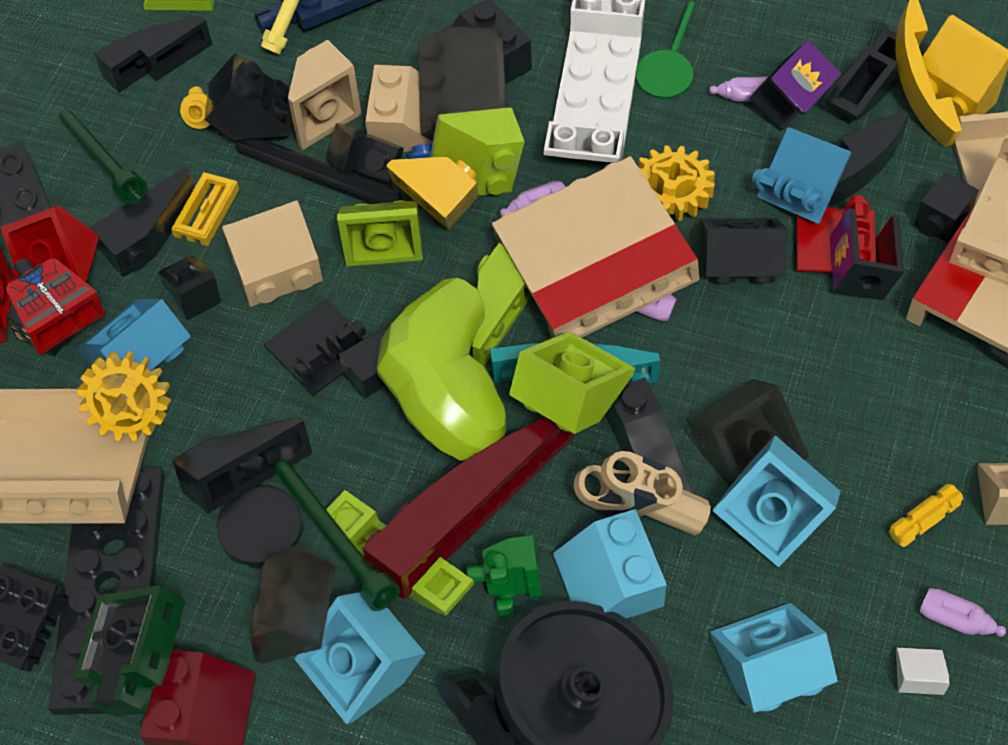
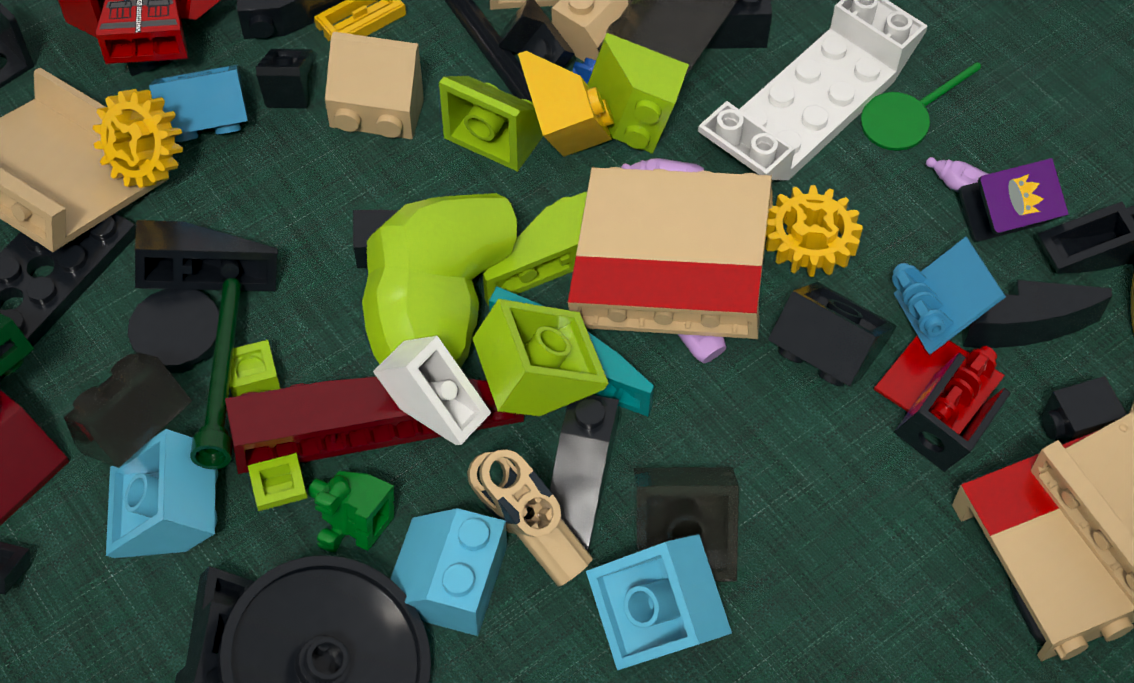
camera: 30 degrees right, 0 degrees up
(313, 346) = (350, 187): black hinge -> none
(513, 445) = (432, 388): none -> white slope

